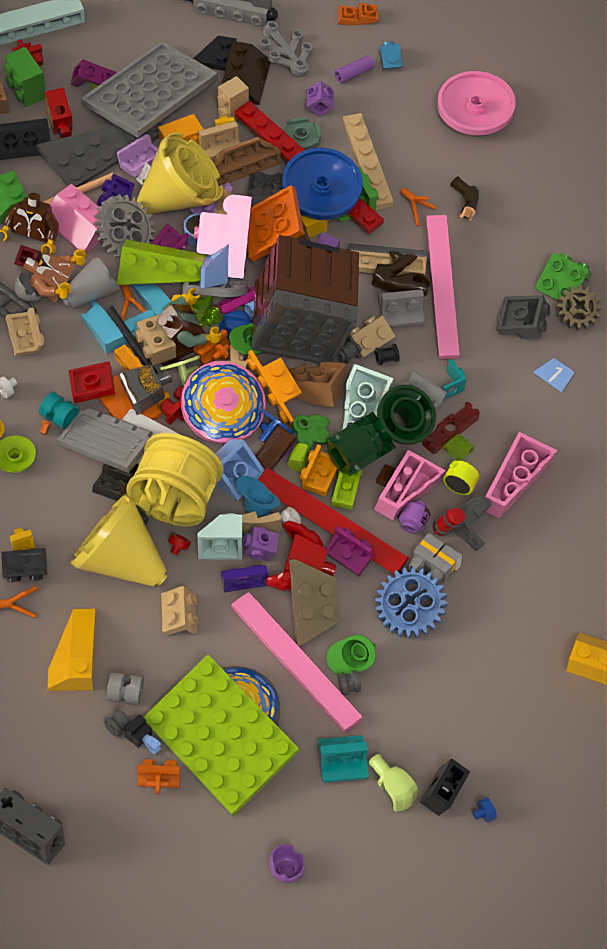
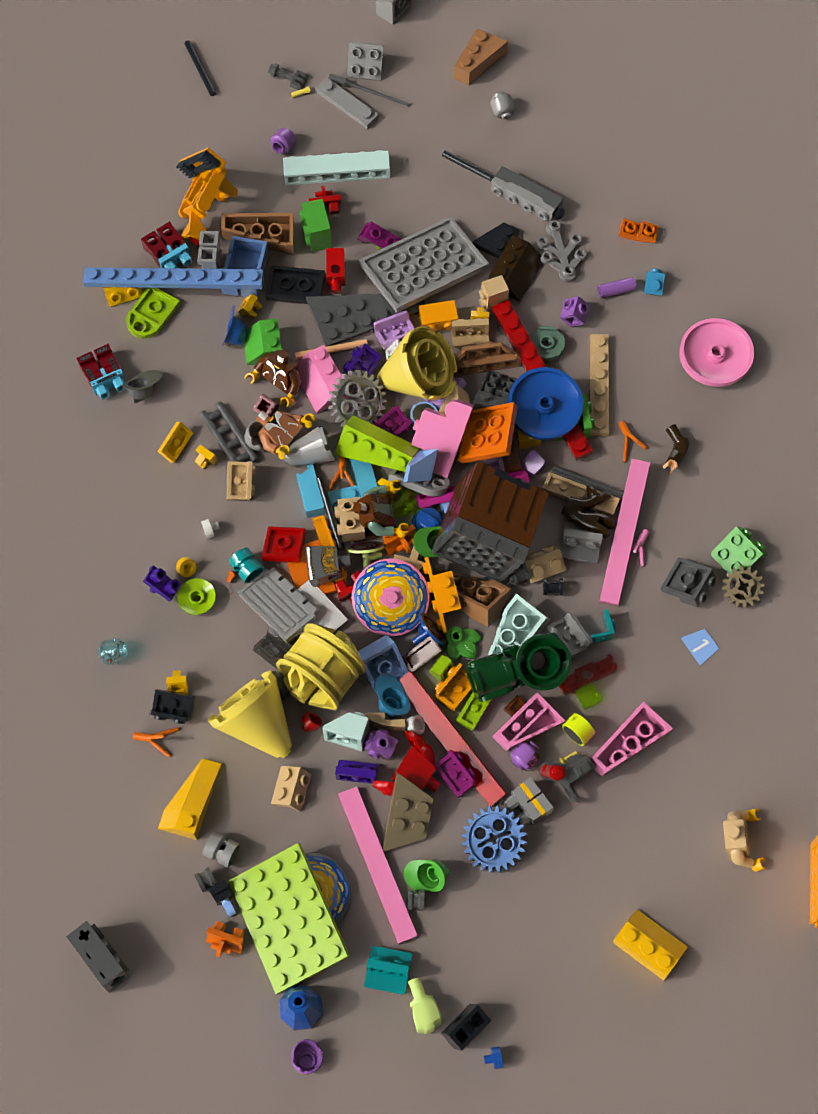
camera: 20 degrees right, 10 degrees up
(262, 819) = (302, 1016): none -> blue cone
(461, 295) = (639, 545): none -> bright pink plant

